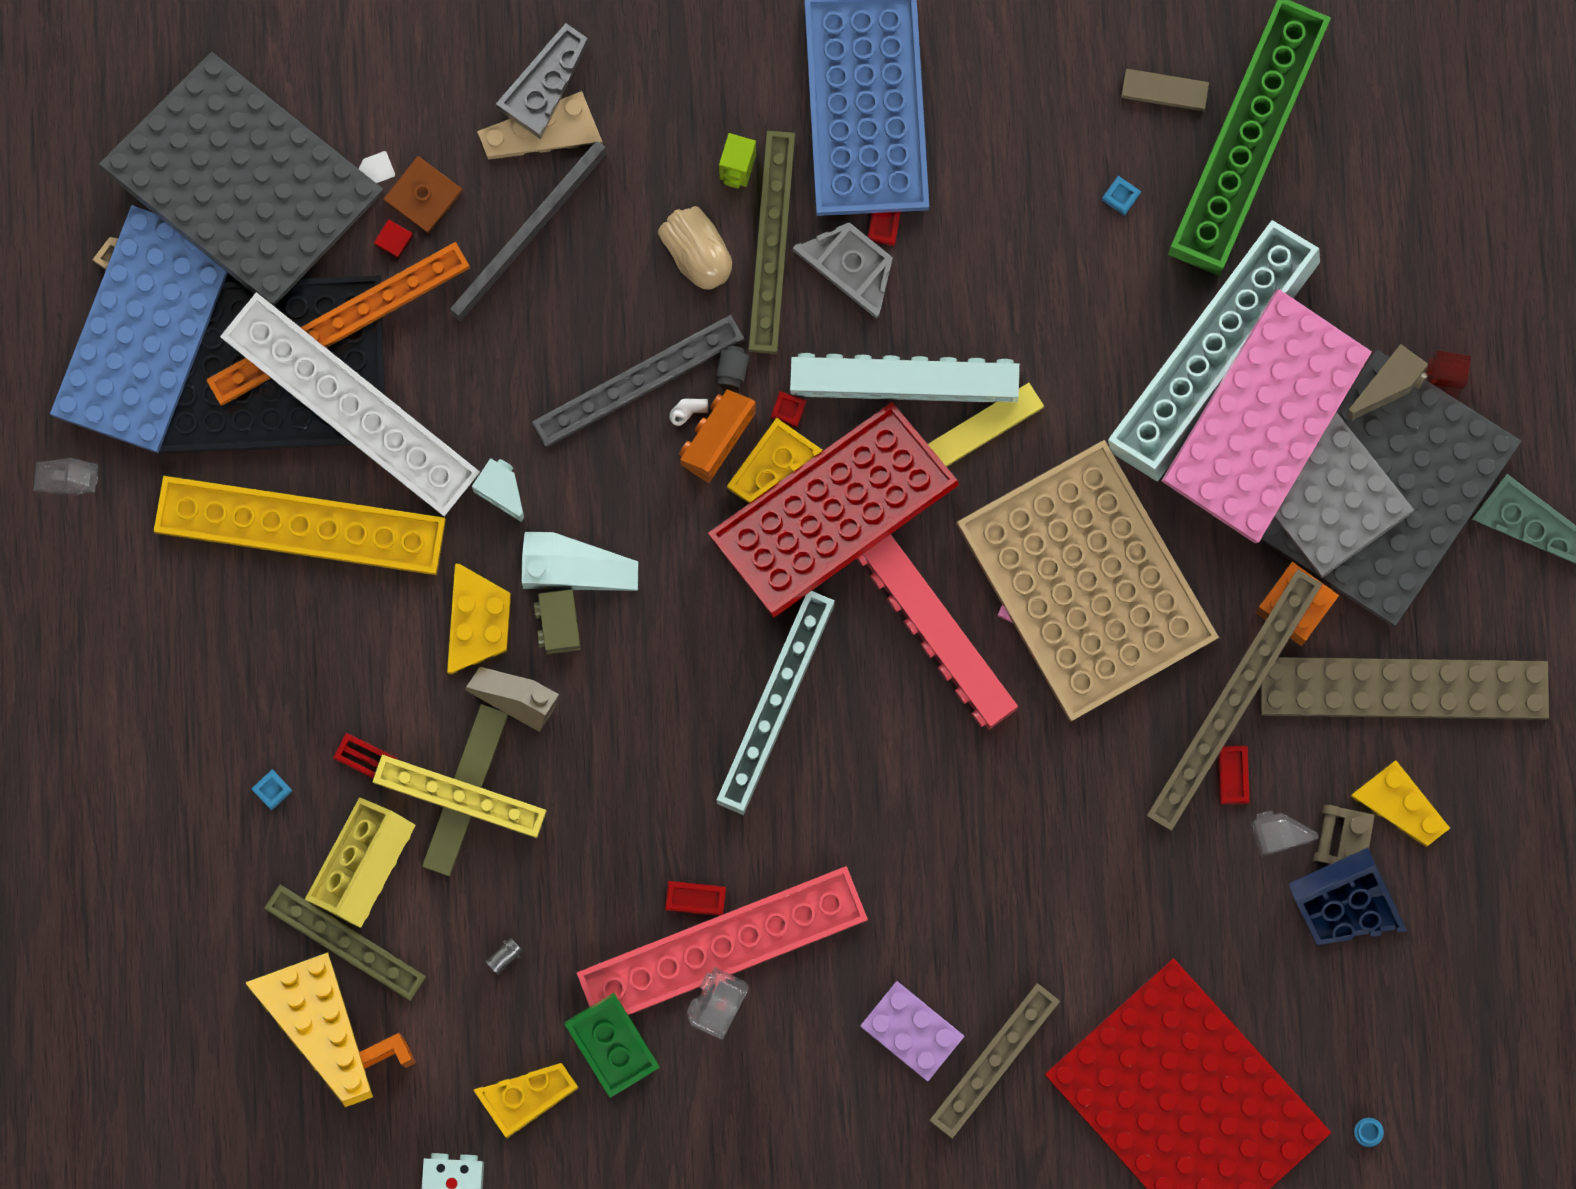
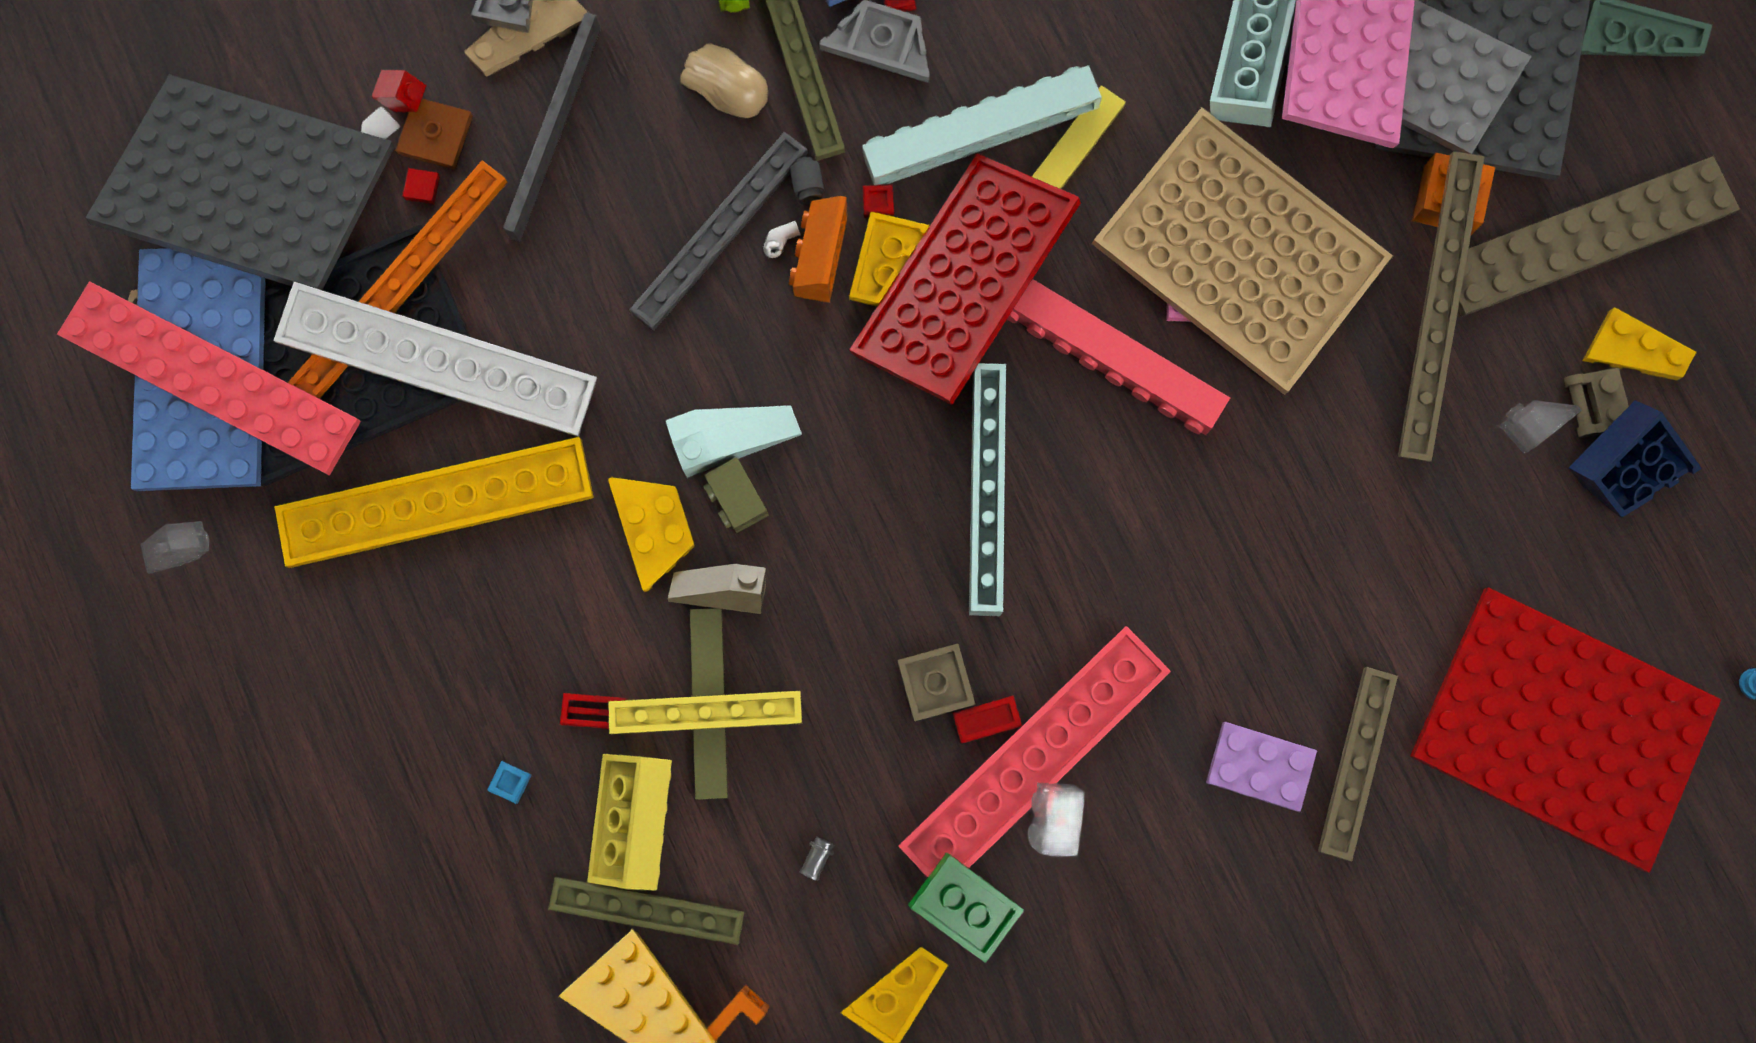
camera: 20 degrees left, 0 degrees up
(151, 344) = (209, 378): none -> coral plate
(406, 147) = (399, 91): none -> red brick
(500, 488) = (622, 386): light aqua slope -> none
(664, 849) = (936, 682): none -> dark tan plate
(1233, 775) = (1465, 385): red tile -> none

